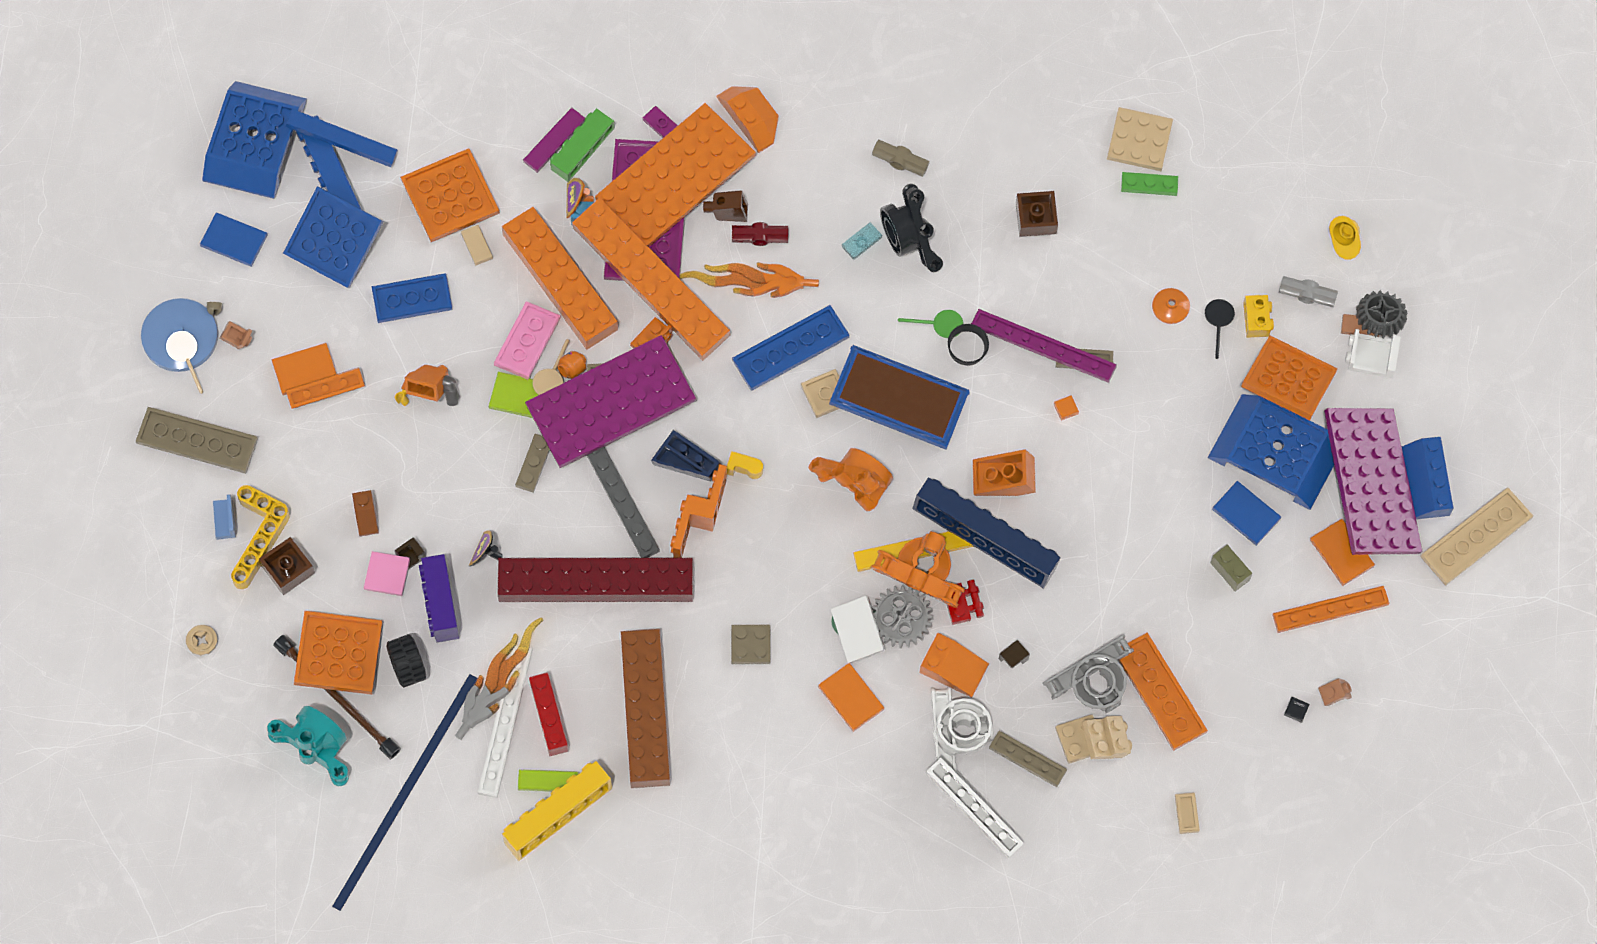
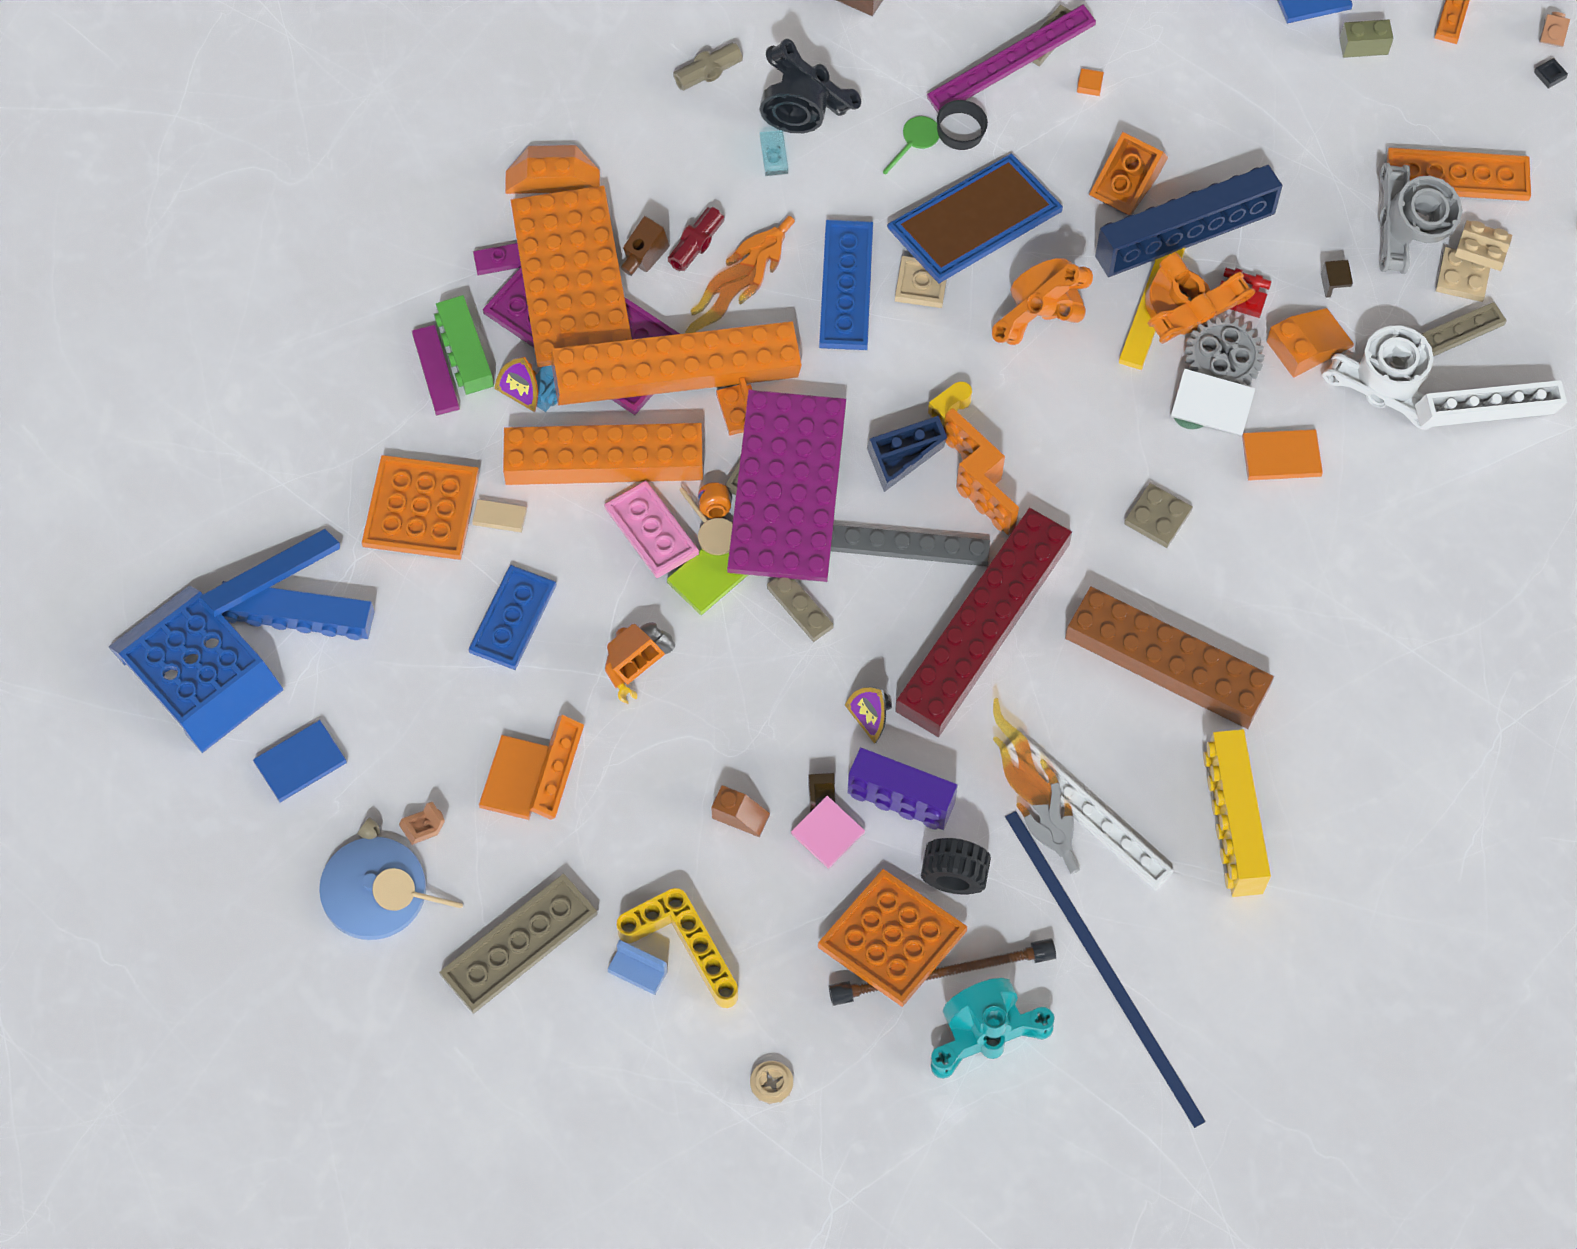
camera: 55 degrees left, 5 degrees down
(286, 566) = (748, 931): reddish brown brick -> none
(333, 237) = (383, 650): blue plate -> none
(542, 780) = (1185, 809): lime tile -> none
(548, 714) = (1112, 759): red brick -> none

